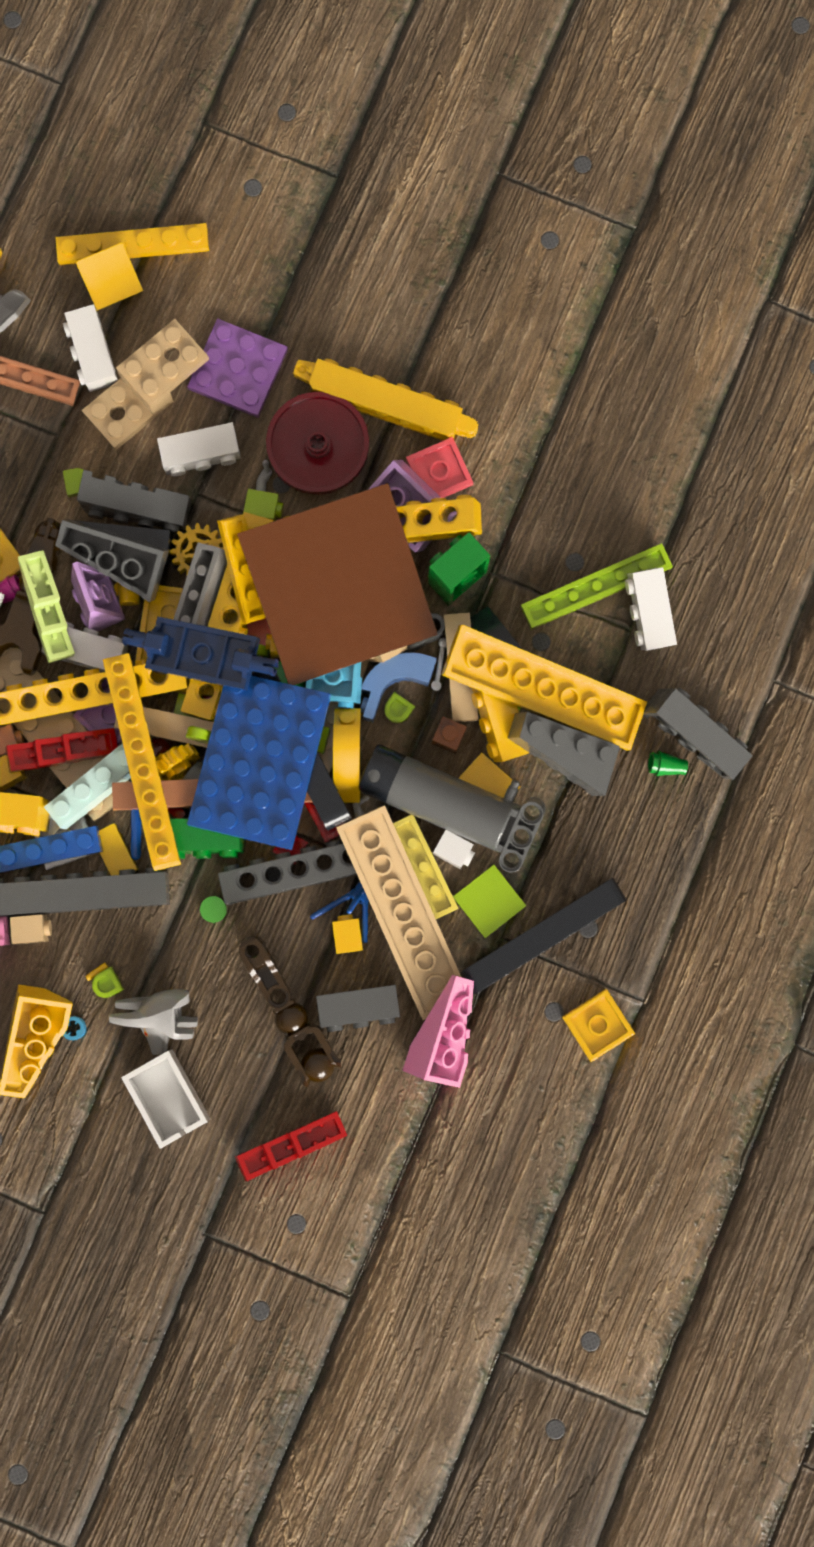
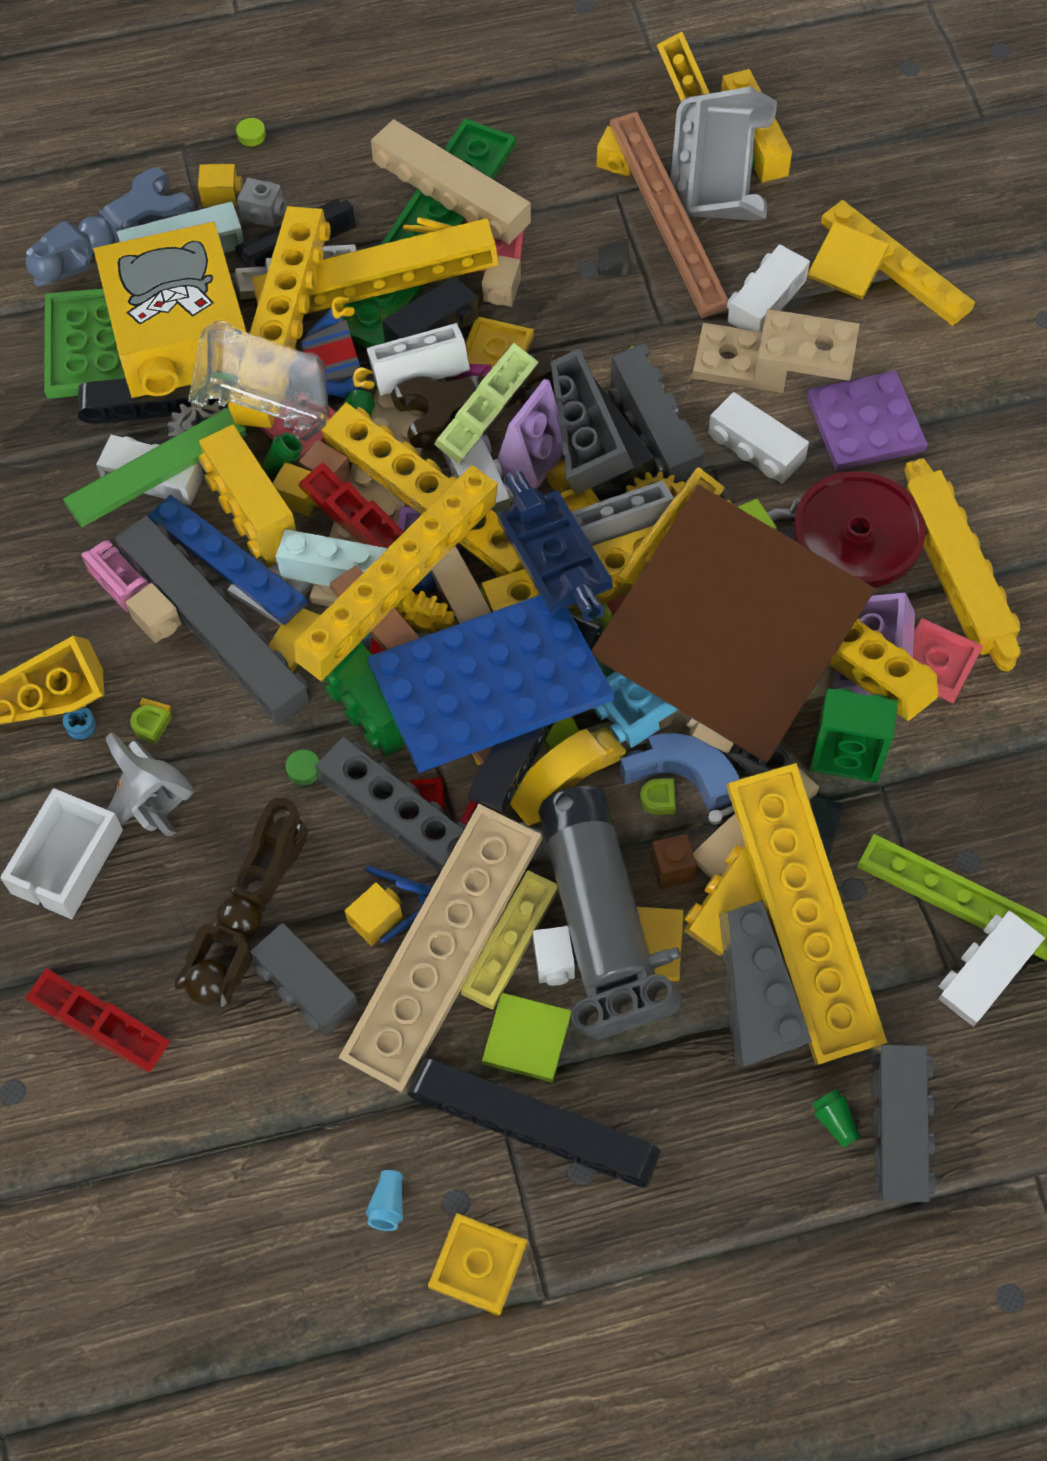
camera: 55 degrees right, 20 degrees down
(198, 734) = (469, 608): lime tile -> none
(440, 1044) = (331, 1092): bright pink wedge -> none
(527, 1051) = (386, 1203): none -> medium azure cone

